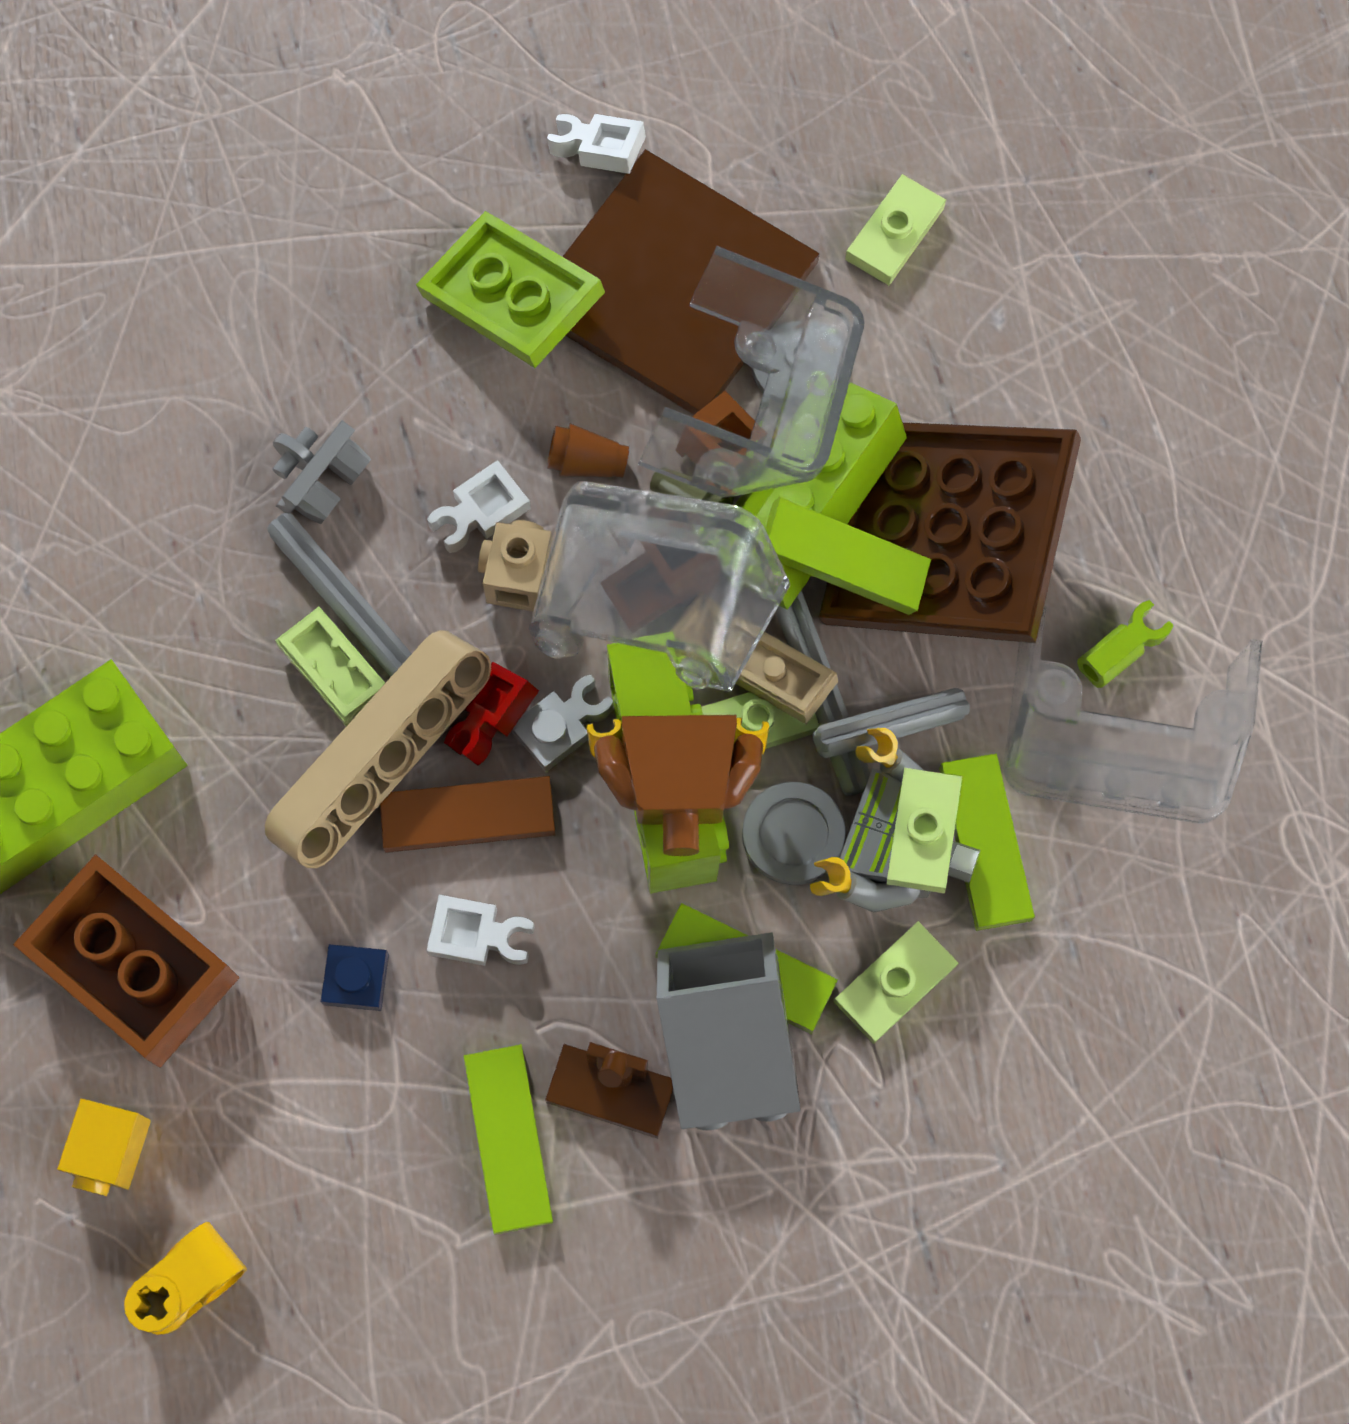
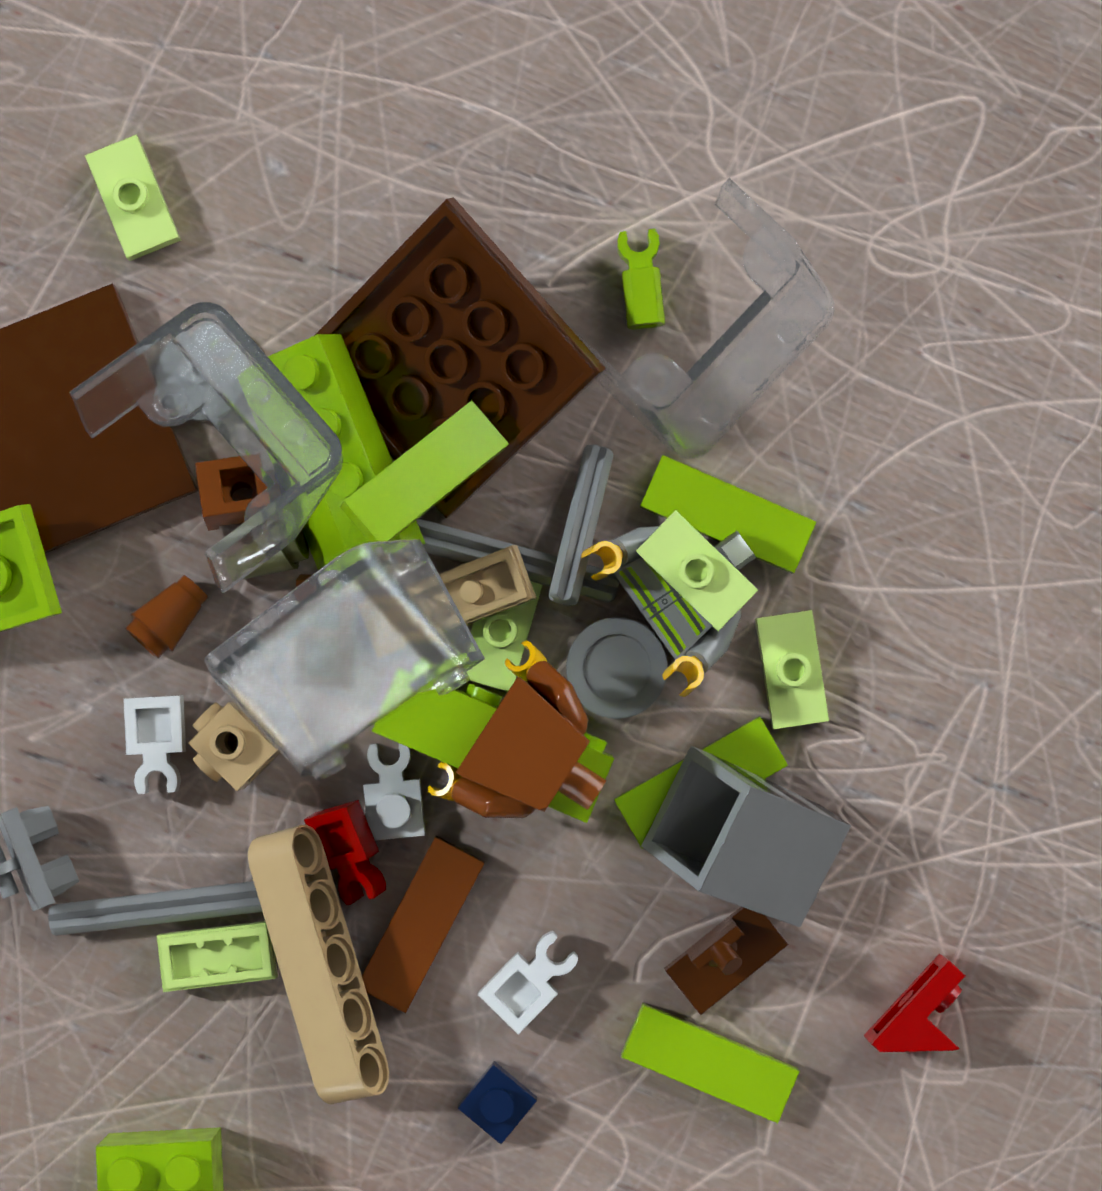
camera: 55 degrees left, 15 degrees up
(659, 1288) = (906, 1021): none -> red slope

